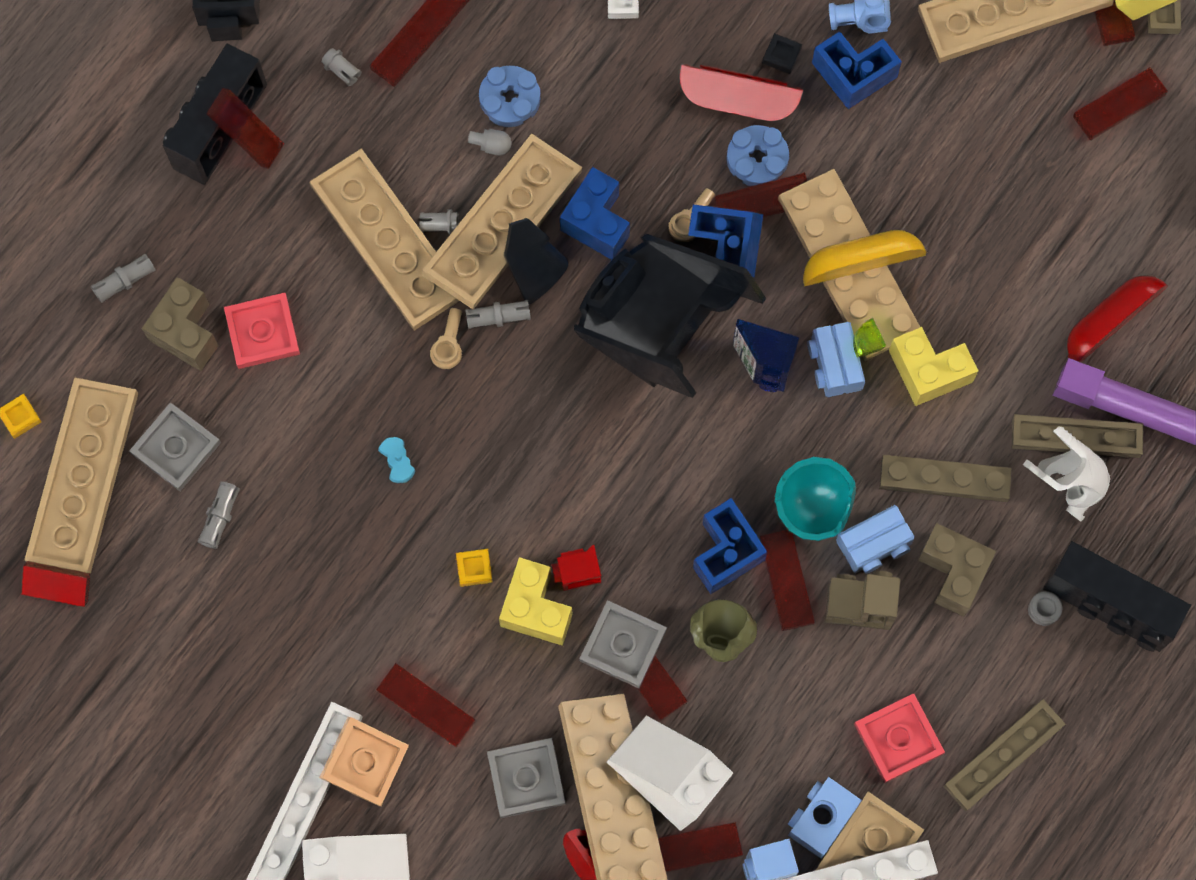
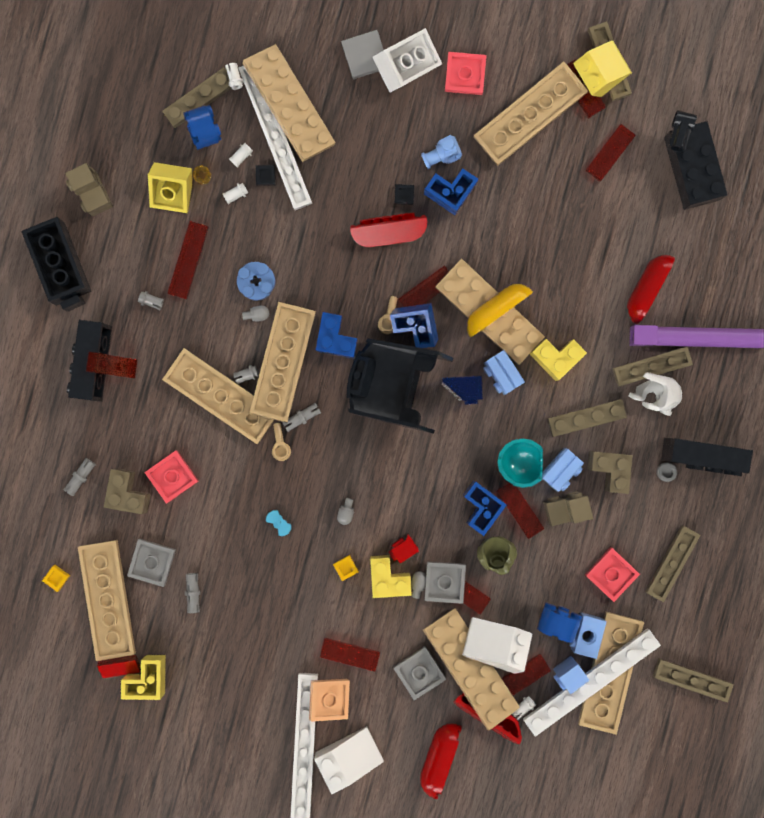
camera: 25 degrees left, 15 degrees up
(93, 624) = (148, 684): none -> light yellow brick
(508, 481) = (345, 512): none -> light grey cylinder
(533, 259) = (310, 381): black panel -> none
(579, 633) = (418, 583): none -> light grey cylinder
(757, 138) = (415, 253): medium blue plate -> none
(783, 773) = (559, 622): none -> blue brick
(868, 339) = (517, 356): clear neon green tile -> none

